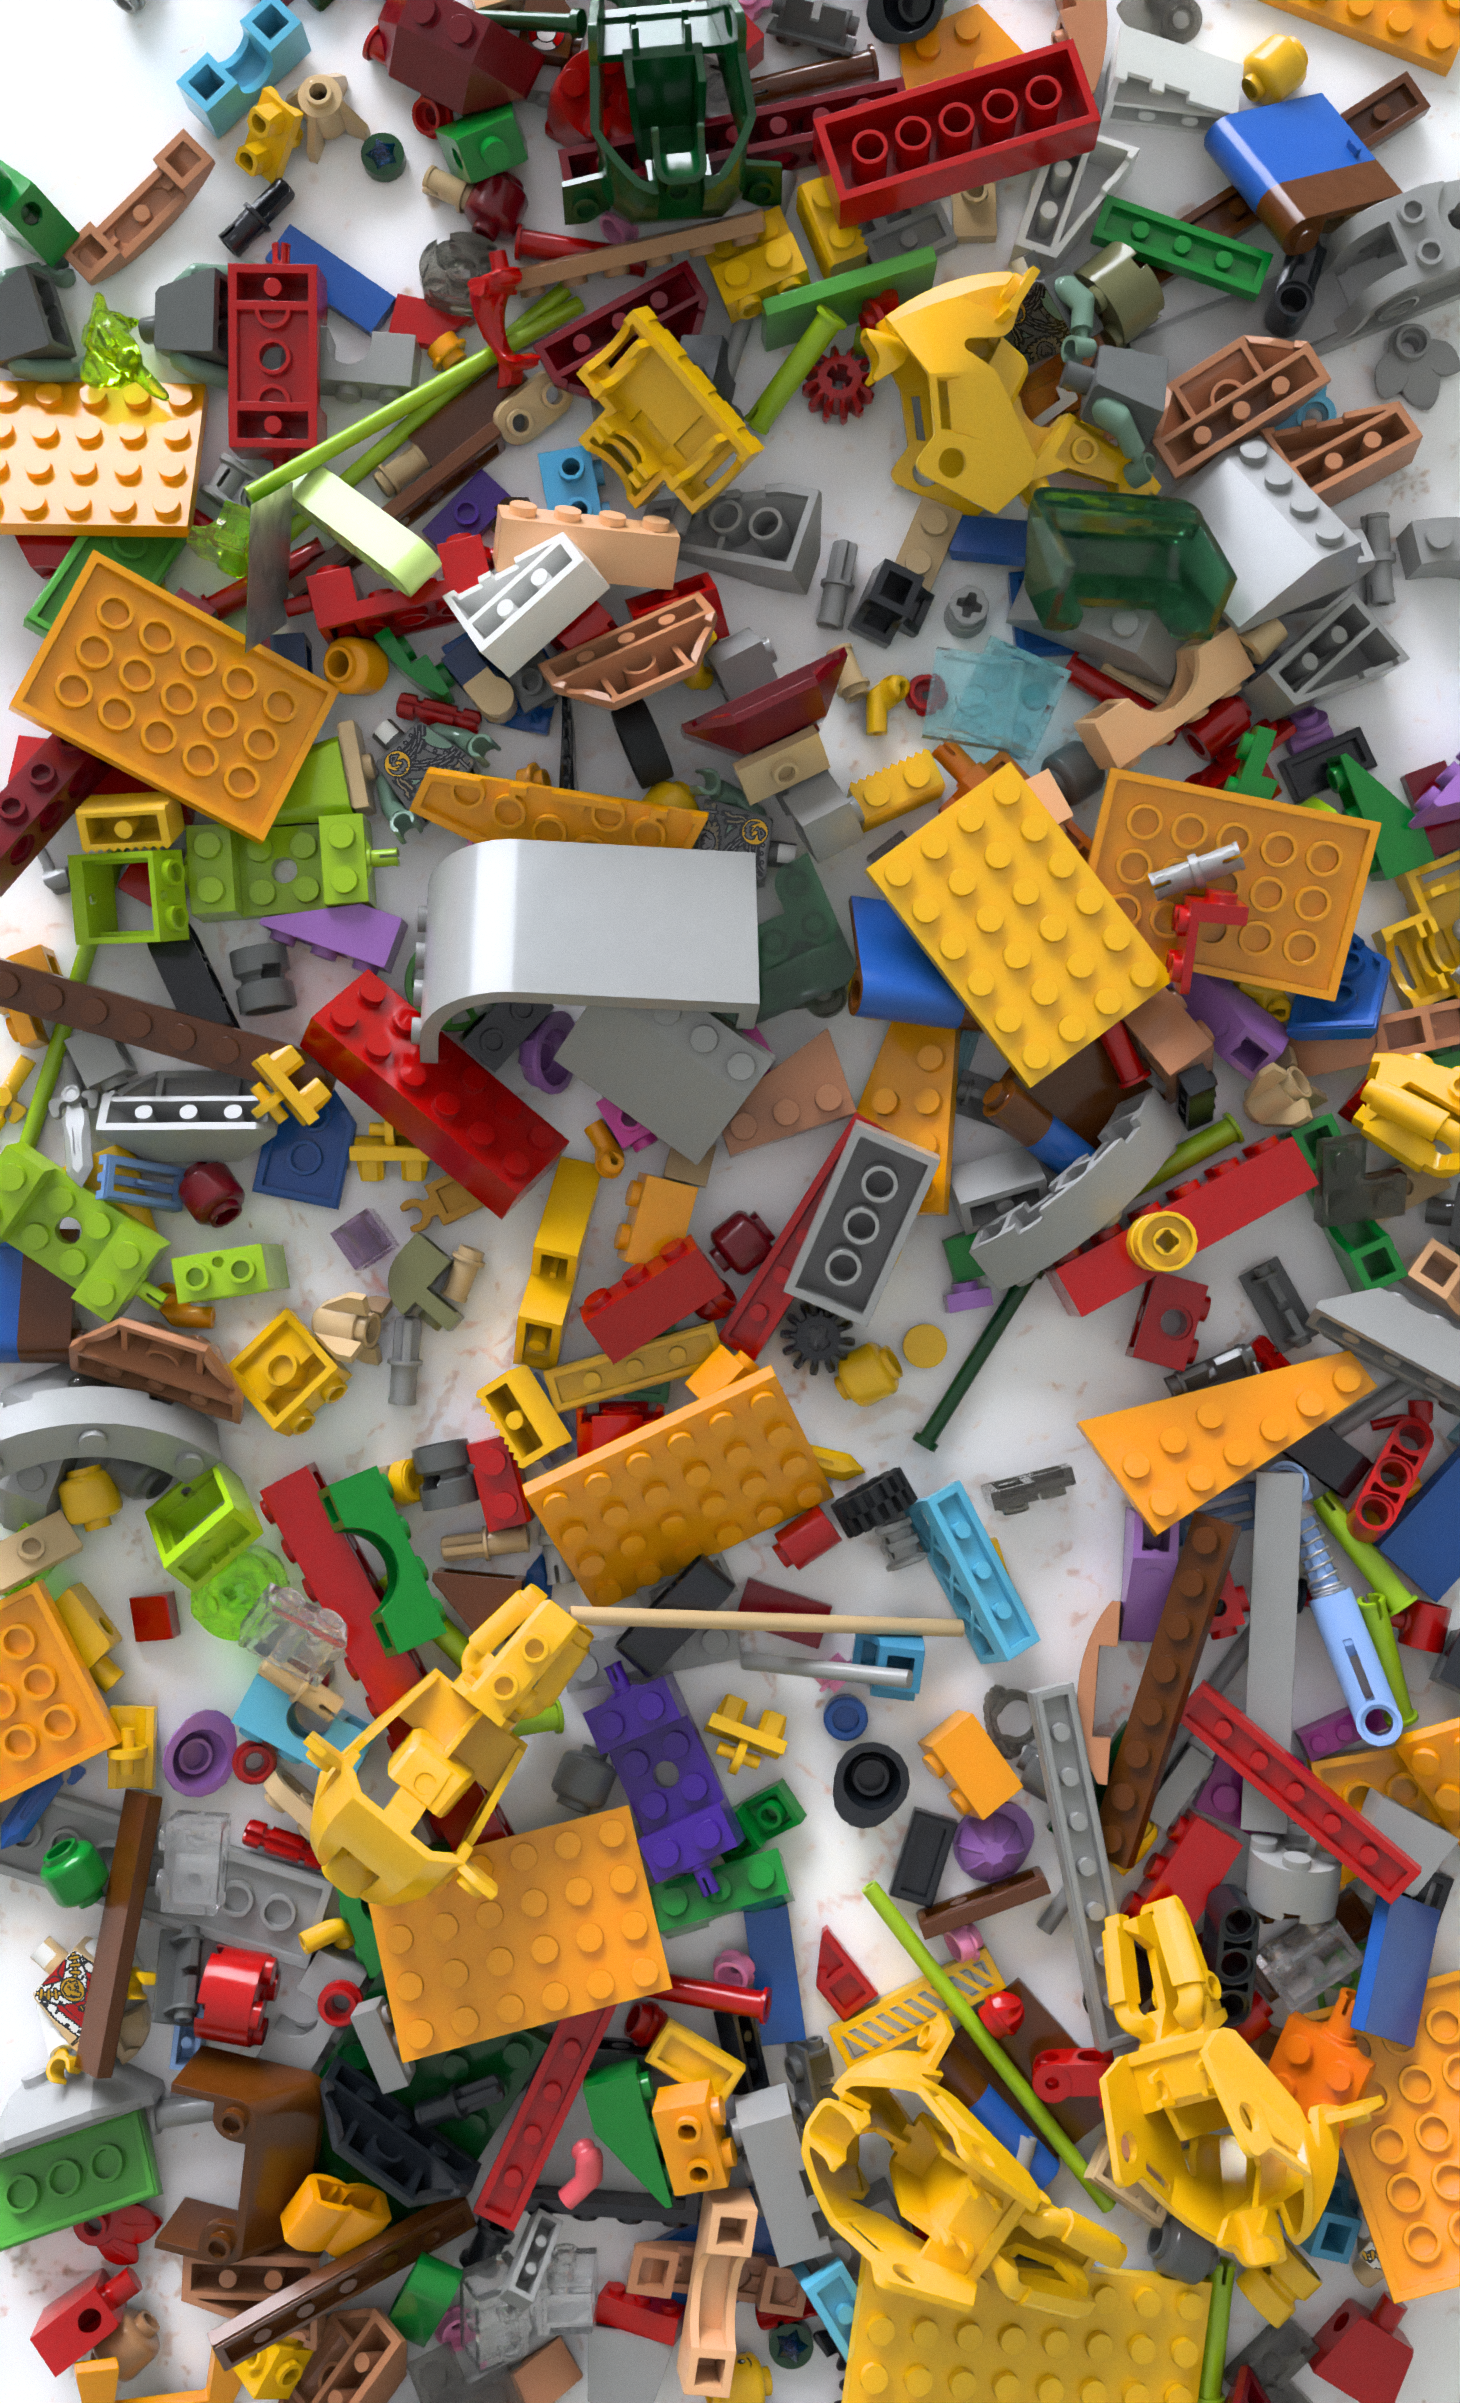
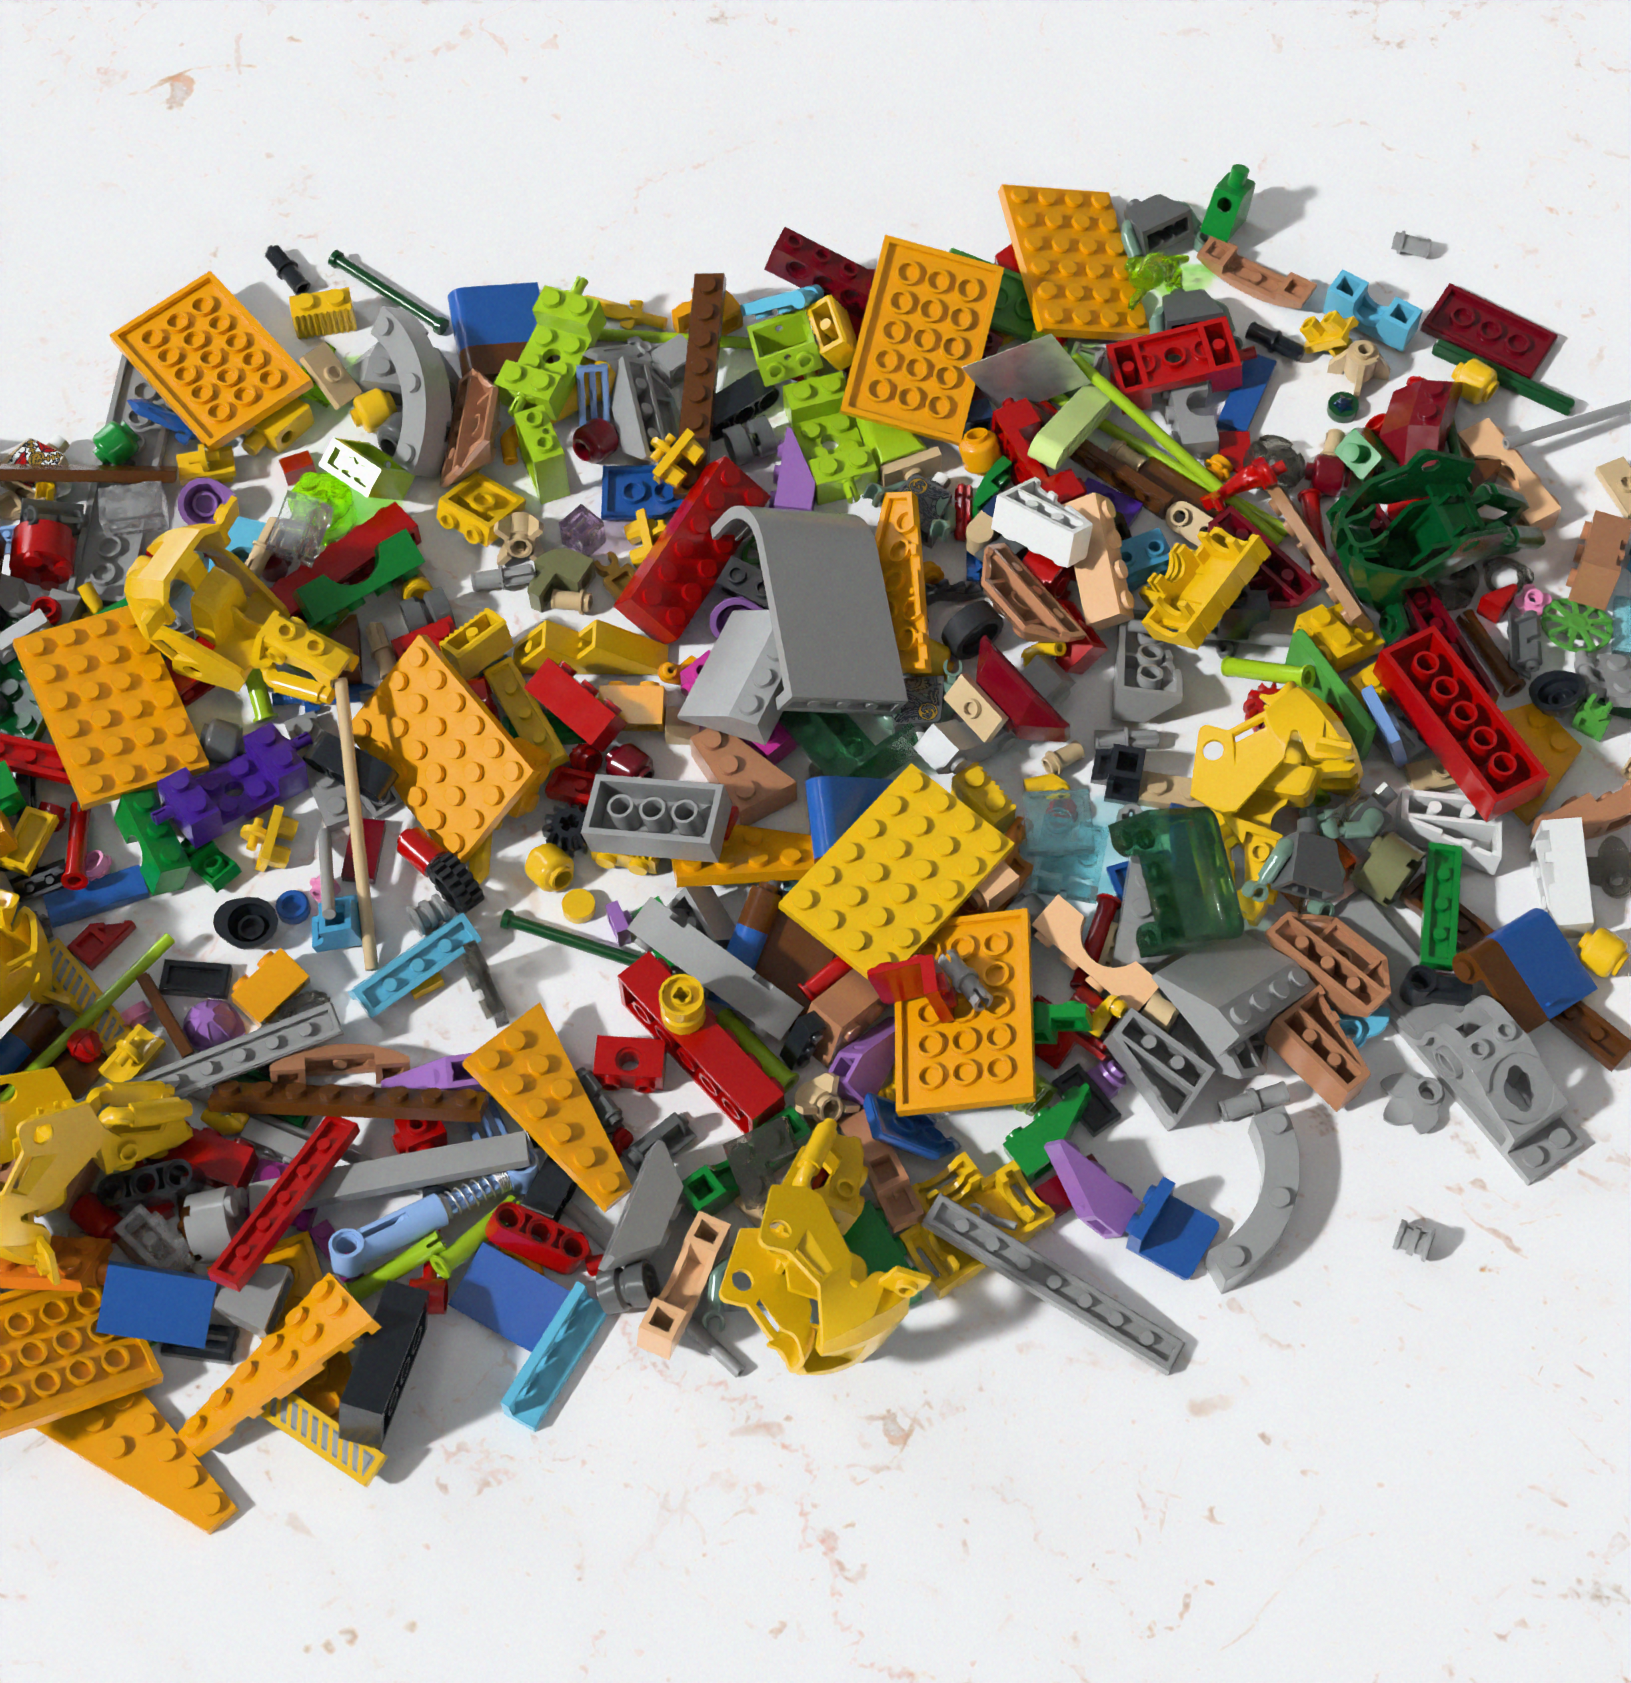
camera: 75 degrees right, 25 degrees down
(53, 882) = (783, 302): none -> medium azure plate
(922, 233) = (1386, 726): none -> medium blue plate
(1029, 1955) = (132, 1055): none -> yellow hips
(1245, 704) = (1110, 1006): none -> yellow arm

